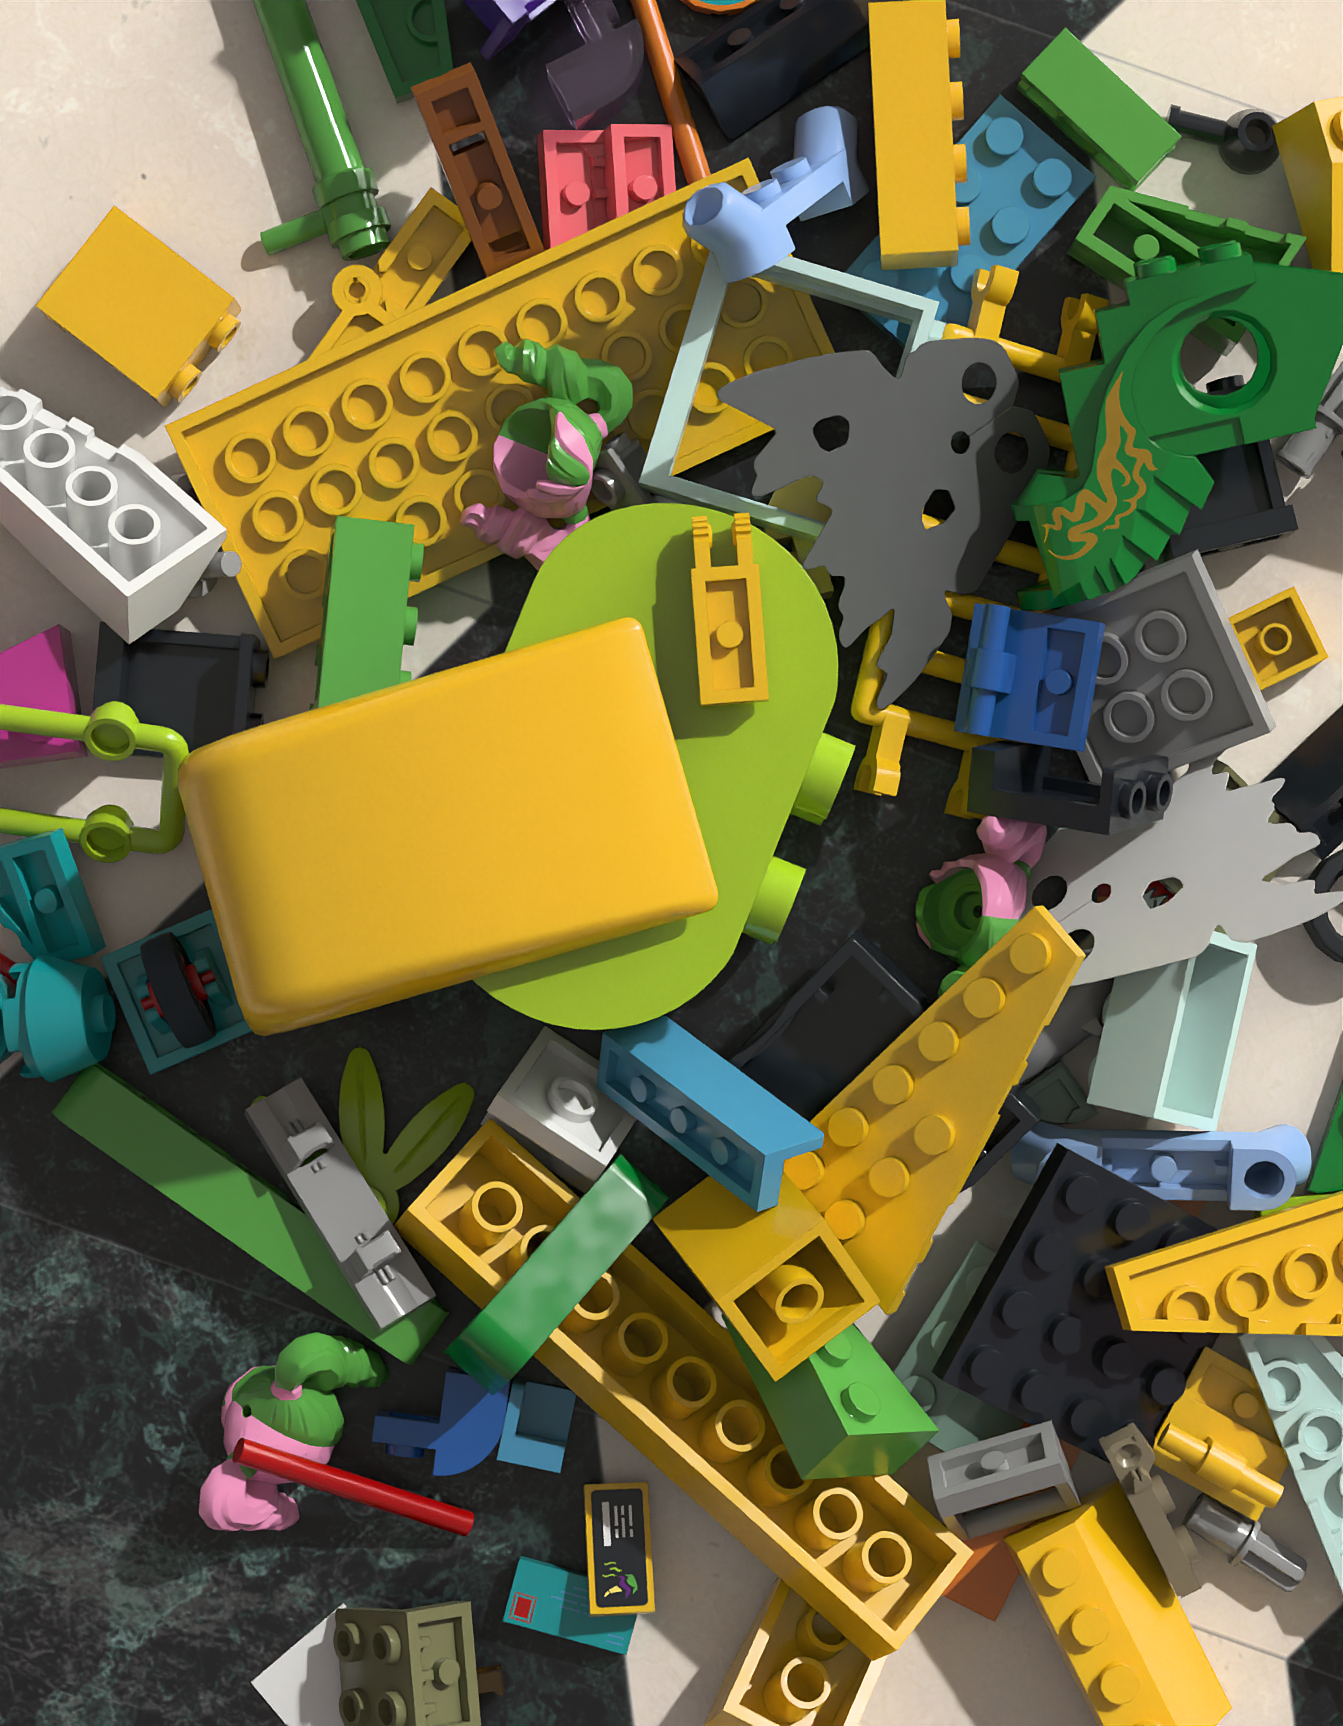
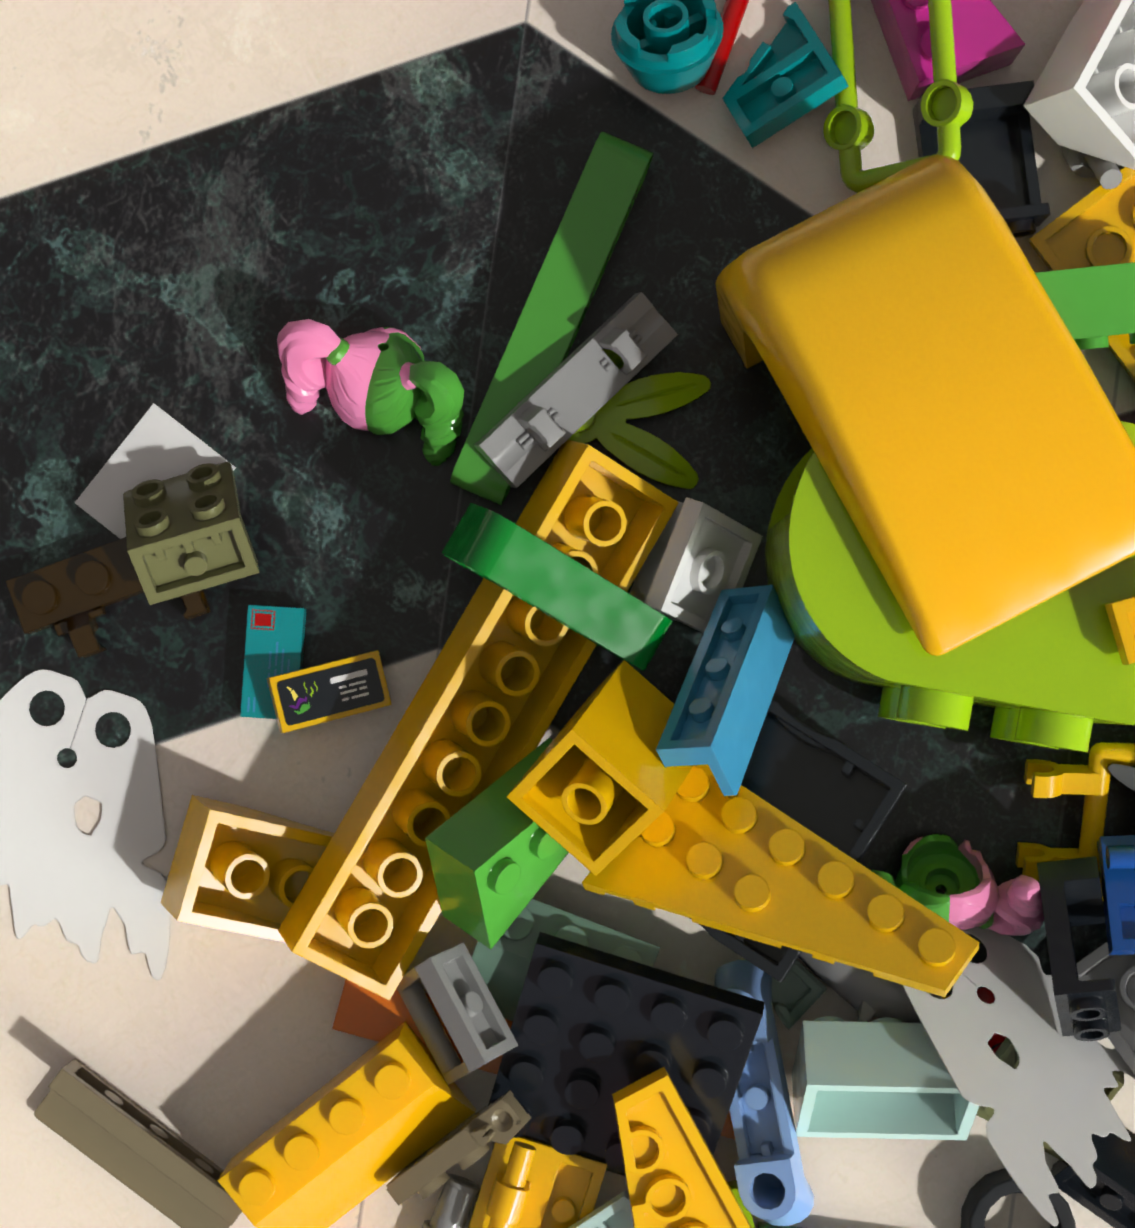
camera: 80 degrees right, 0 degrees up
(58, 1017) = (686, 115): teal cone -> none
(177, 992) = (723, 215): teal plate -> none
(352, 1487) = (336, 450): red bar -> none
(462, 1434) = (404, 538): blue brick -> none
(536, 1425) = (420, 599): dark azure panel -> none

